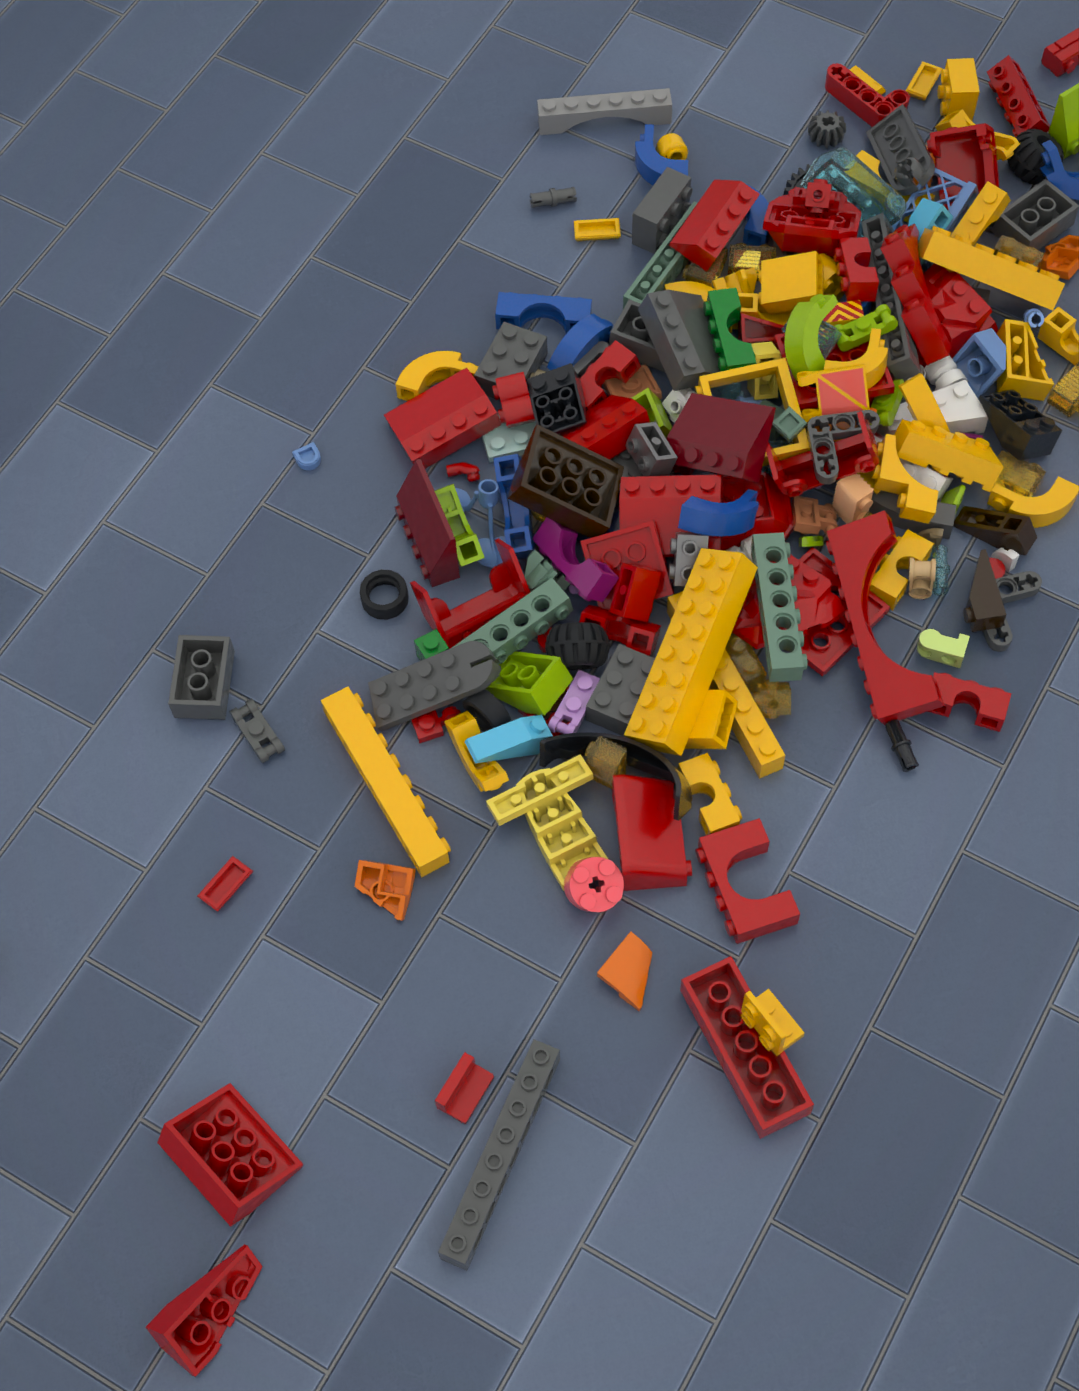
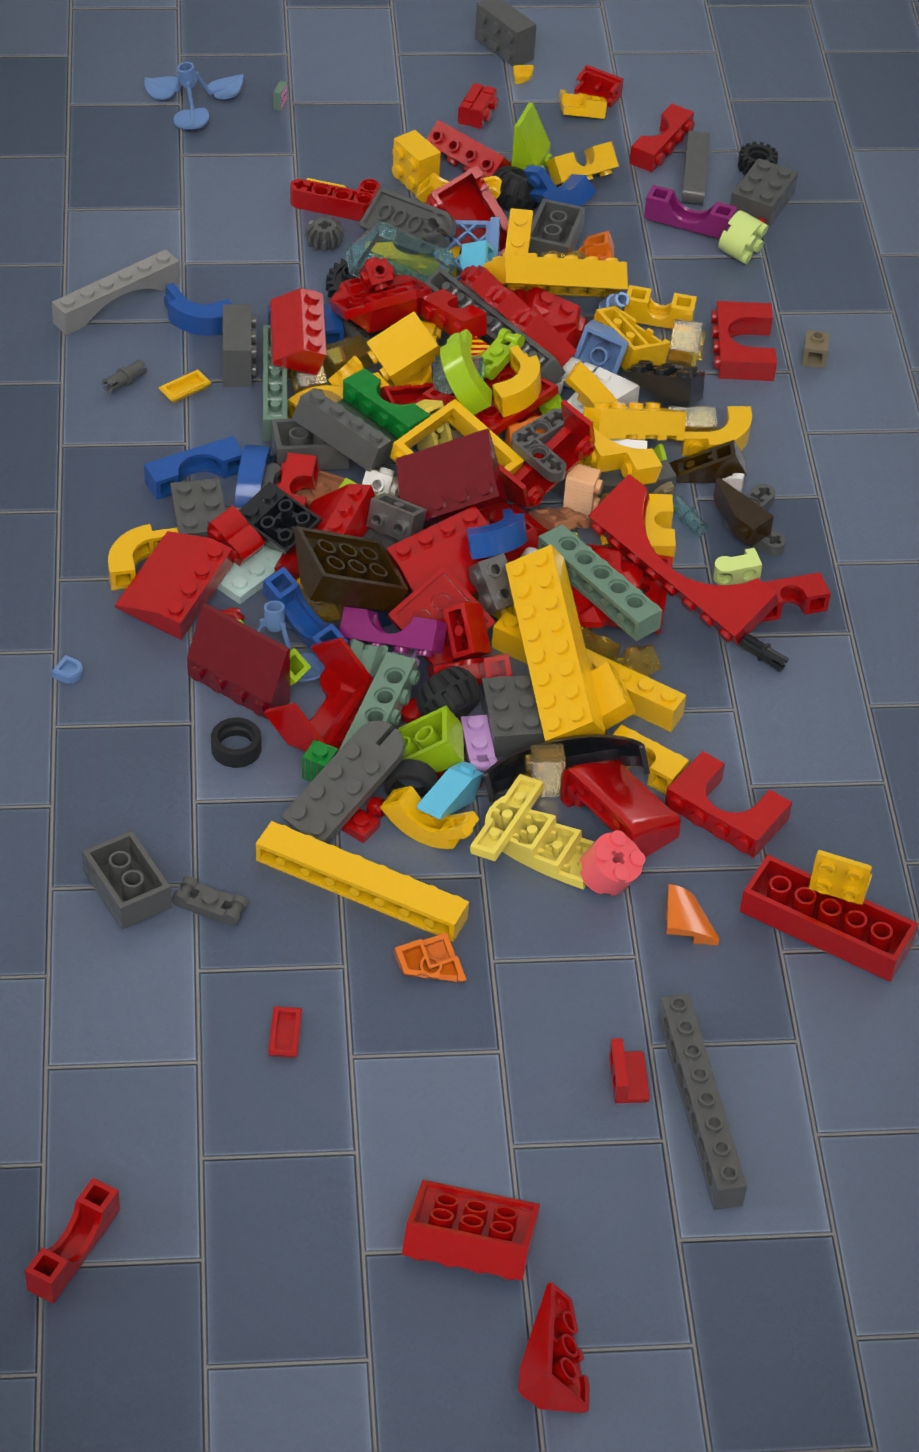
camera: 40 degrees left, 15 degrees down
(672, 147) = (203, 294): yellow head -> none
(789, 424) = (501, 447): sand green tile -> none
(837, 390) = (520, 403): coral flag -> none
(921, 578) = (684, 521): tan piece -> none
(923, 81) = (374, 168): yellow tile -> none

